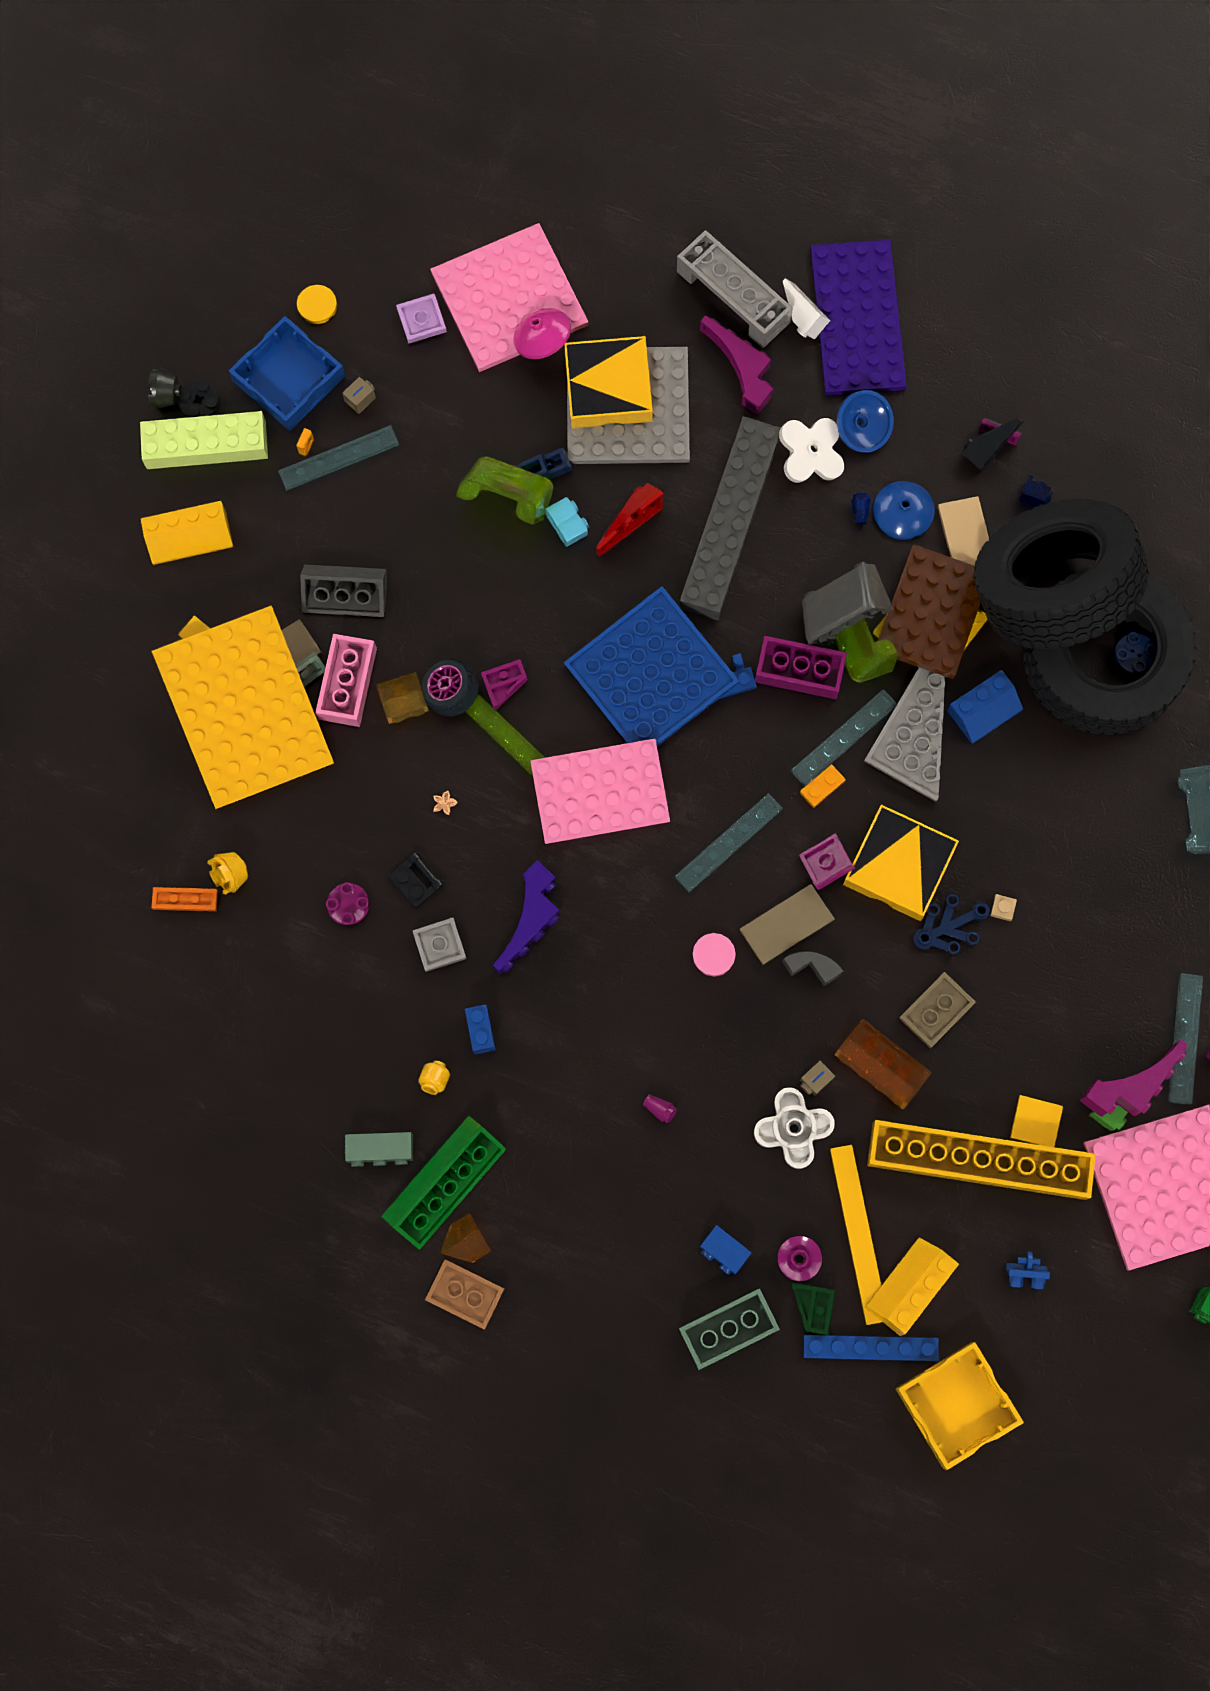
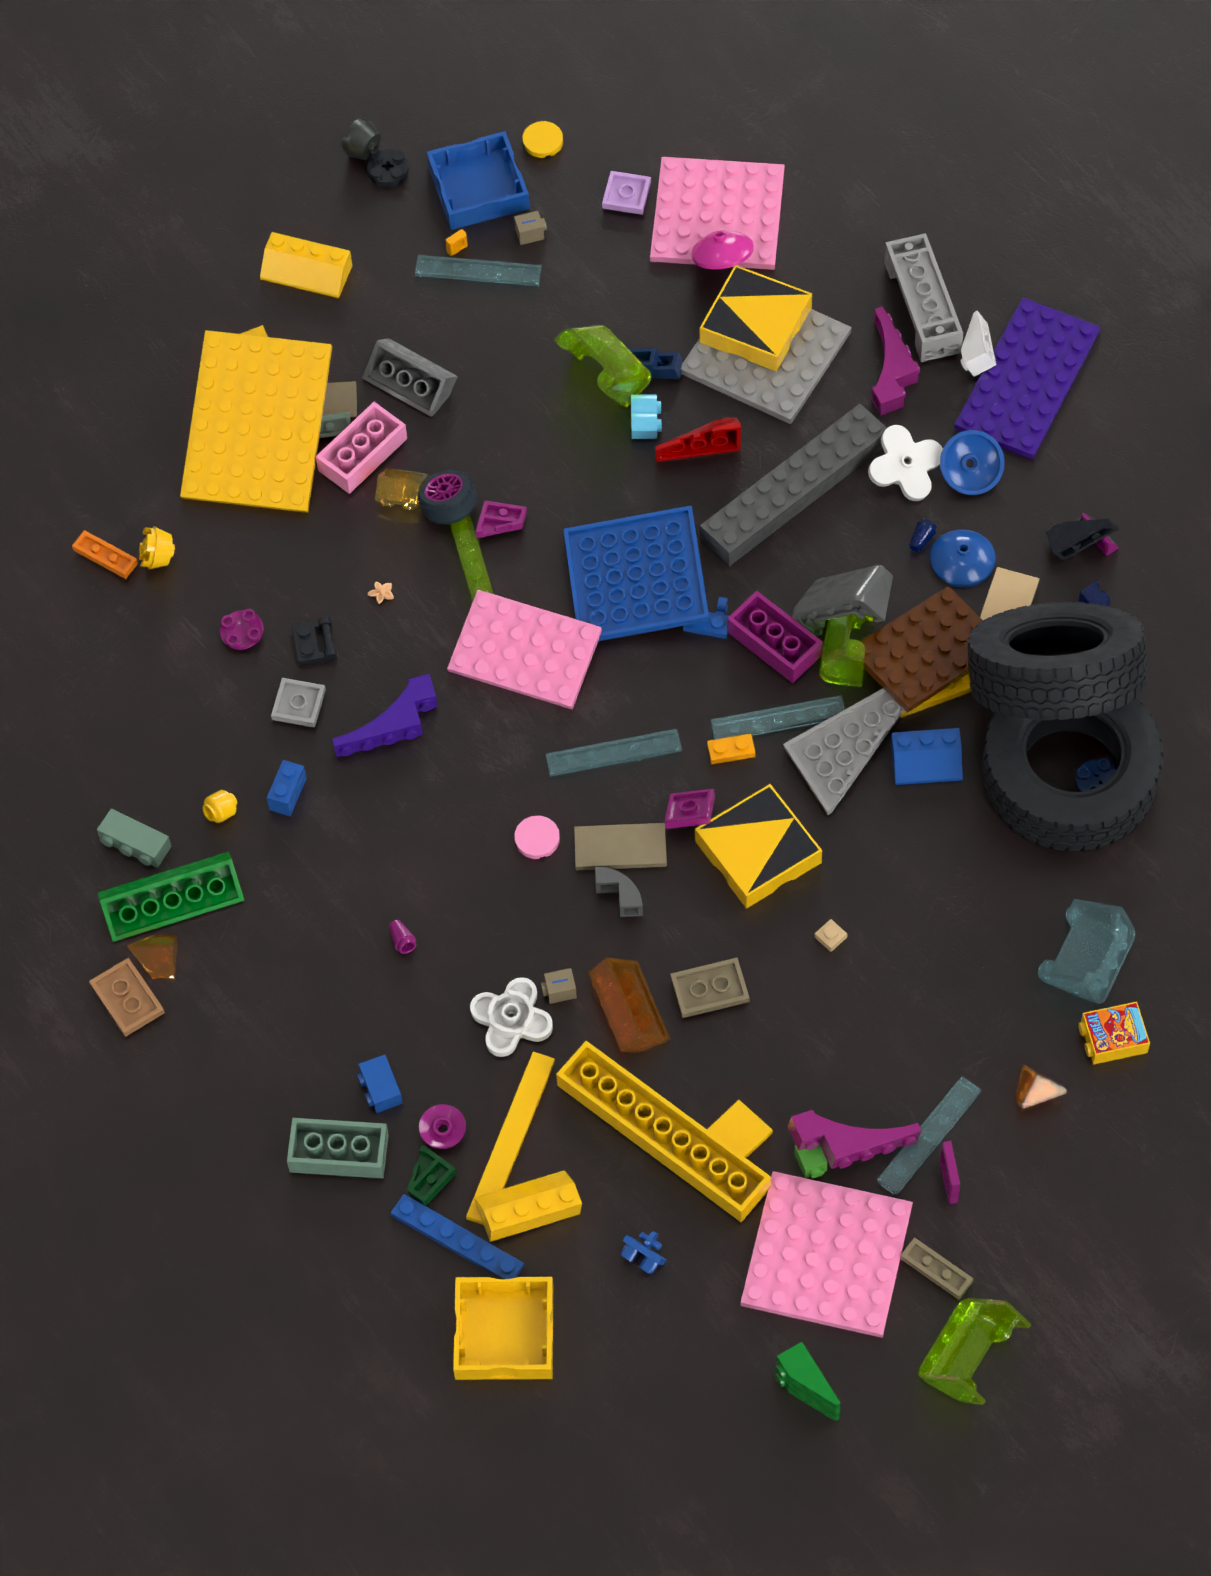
camera: 30 degrees right, 15 degrees down
(204, 440) = (370, 199): yellowish green brick -> none
(948, 926) = (768, 924): dark blue plant -> none

